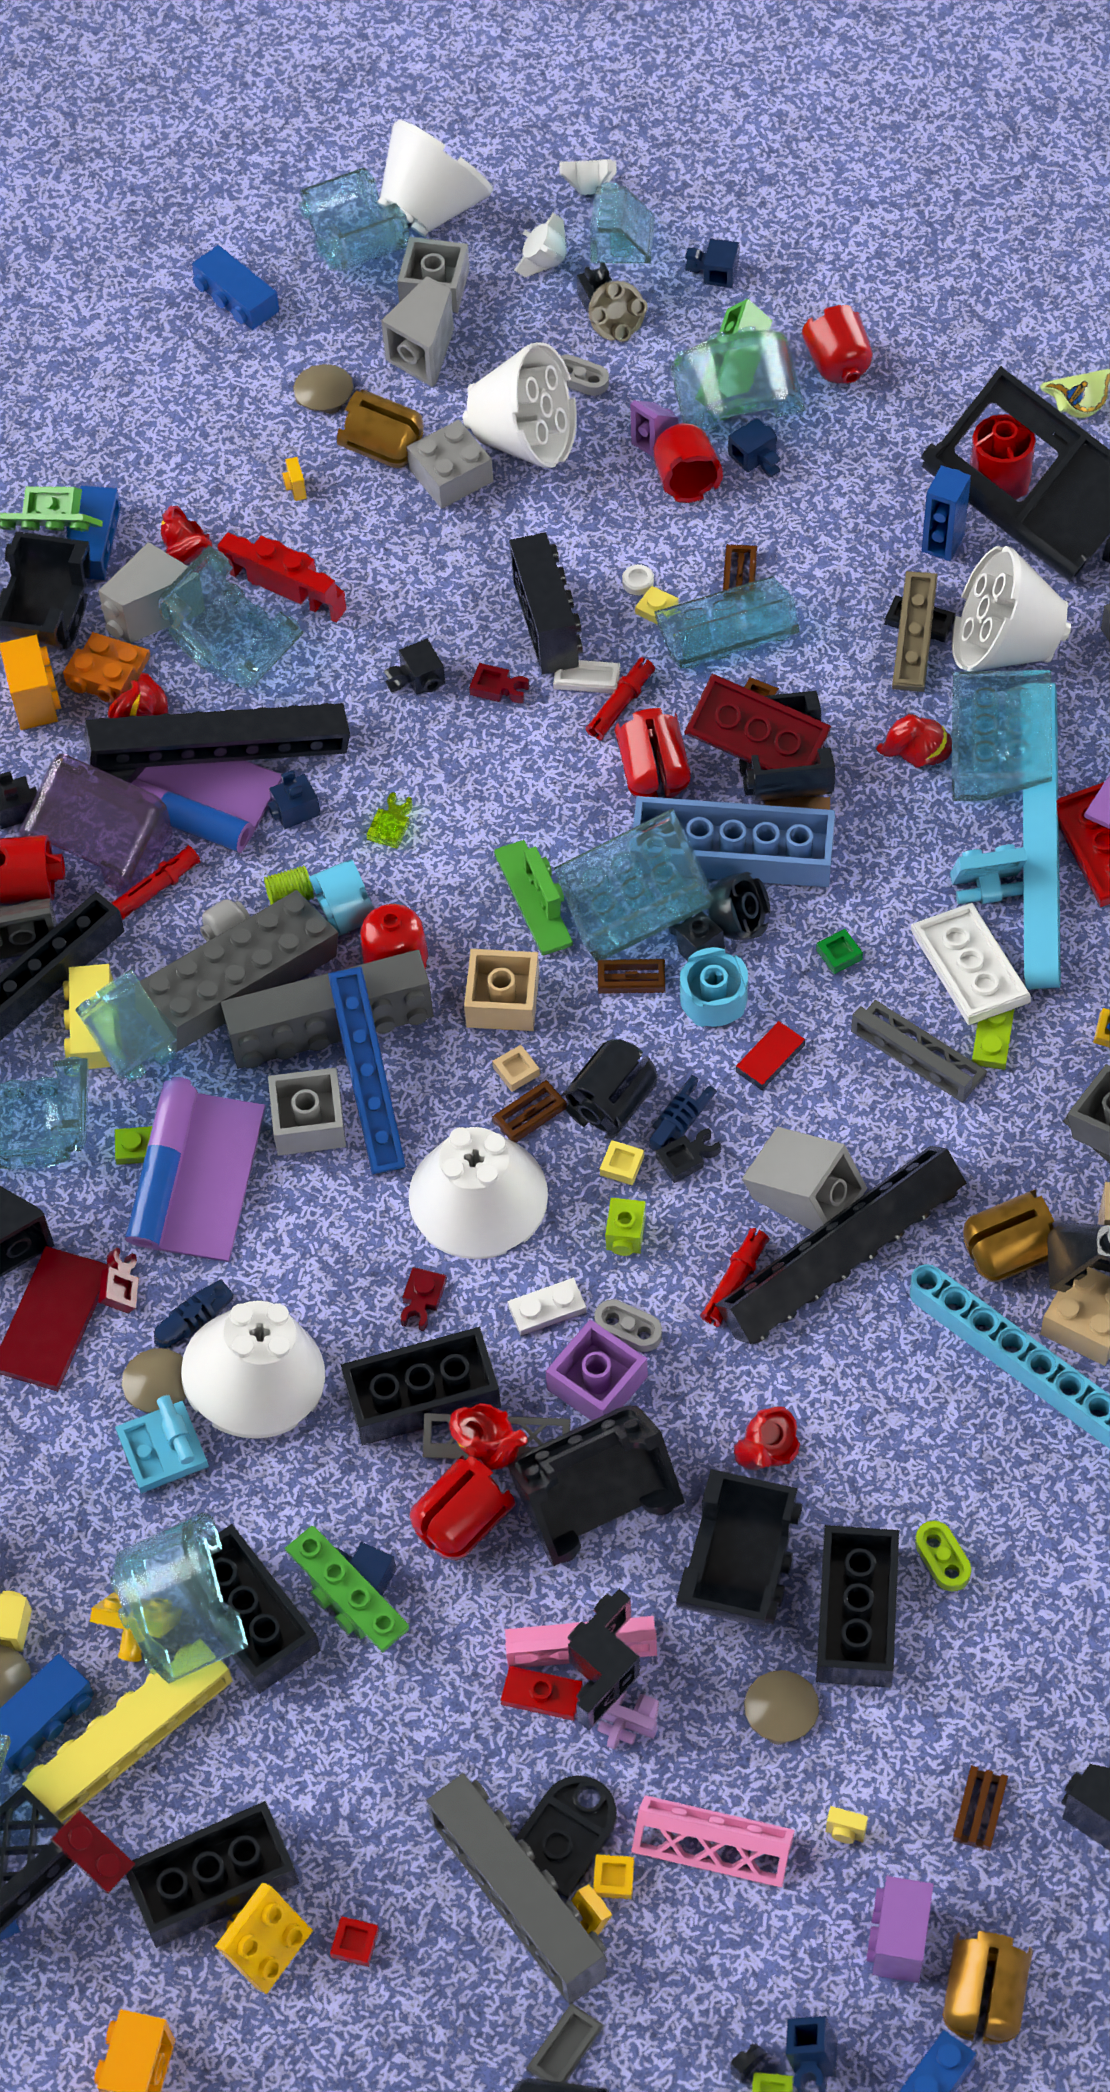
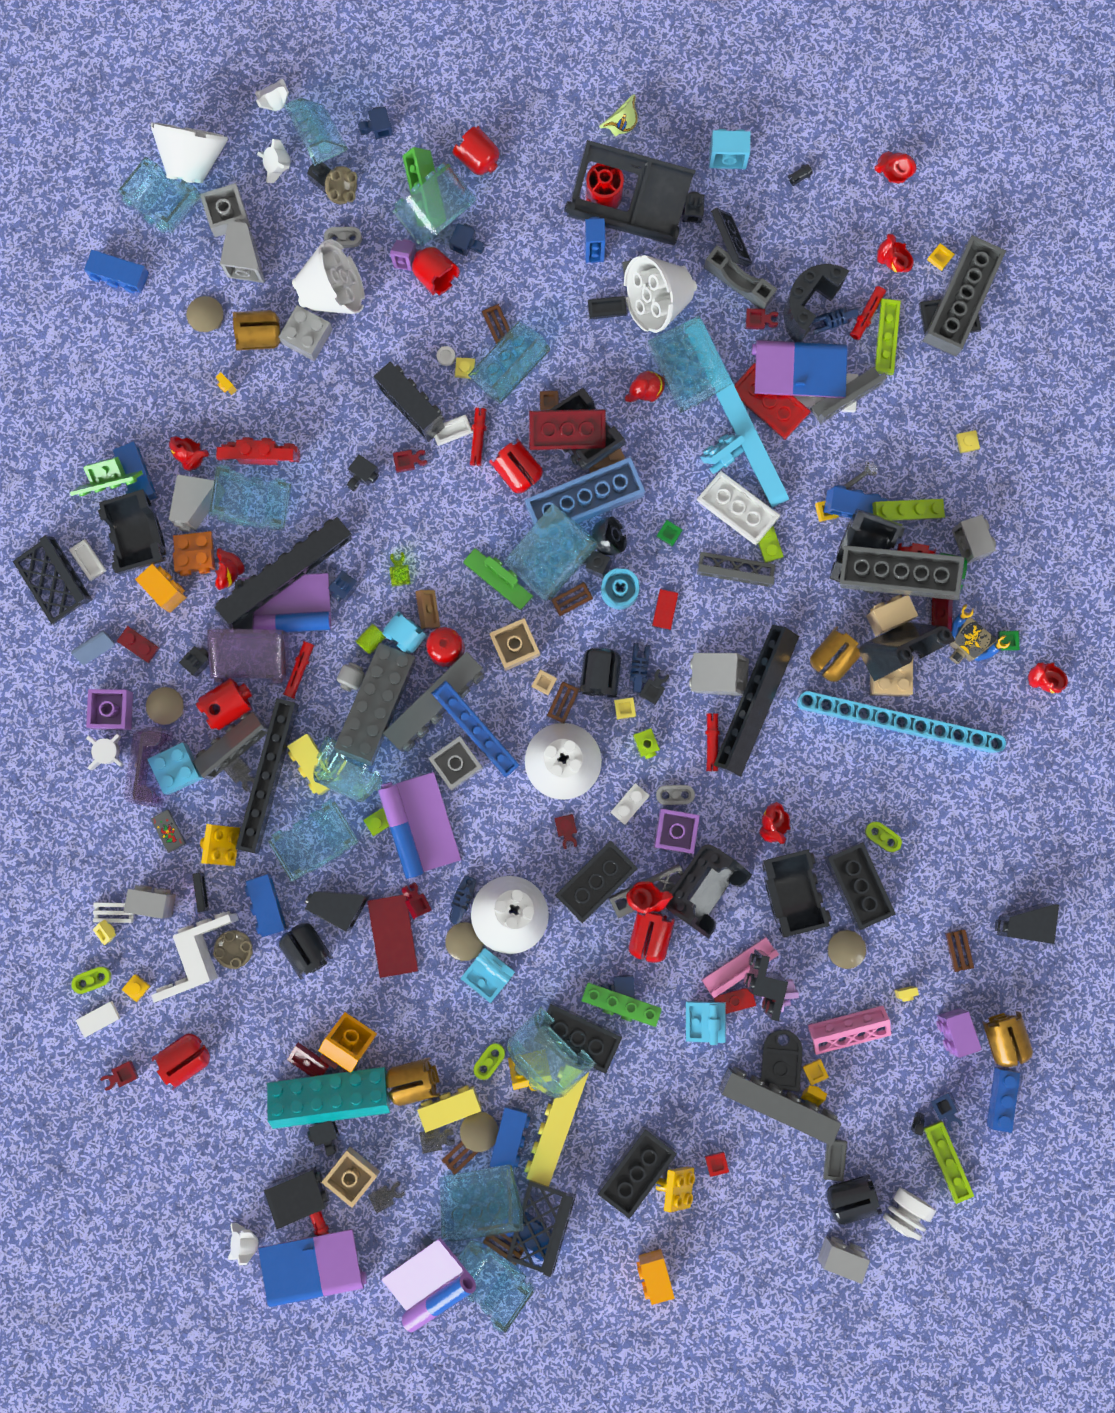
camera: 30 degrees left, 25 degrees up
(79, 1576) = (489, 1061): none -> lime plate
(92, 1851) = (584, 1200): dark red plate -> none
(401, 881) = (427, 609): none -> medium nougat plate
(472, 1694) = (706, 1022): none -> medium azure plate
(915, 631) = (610, 318): dark tan tile -> none

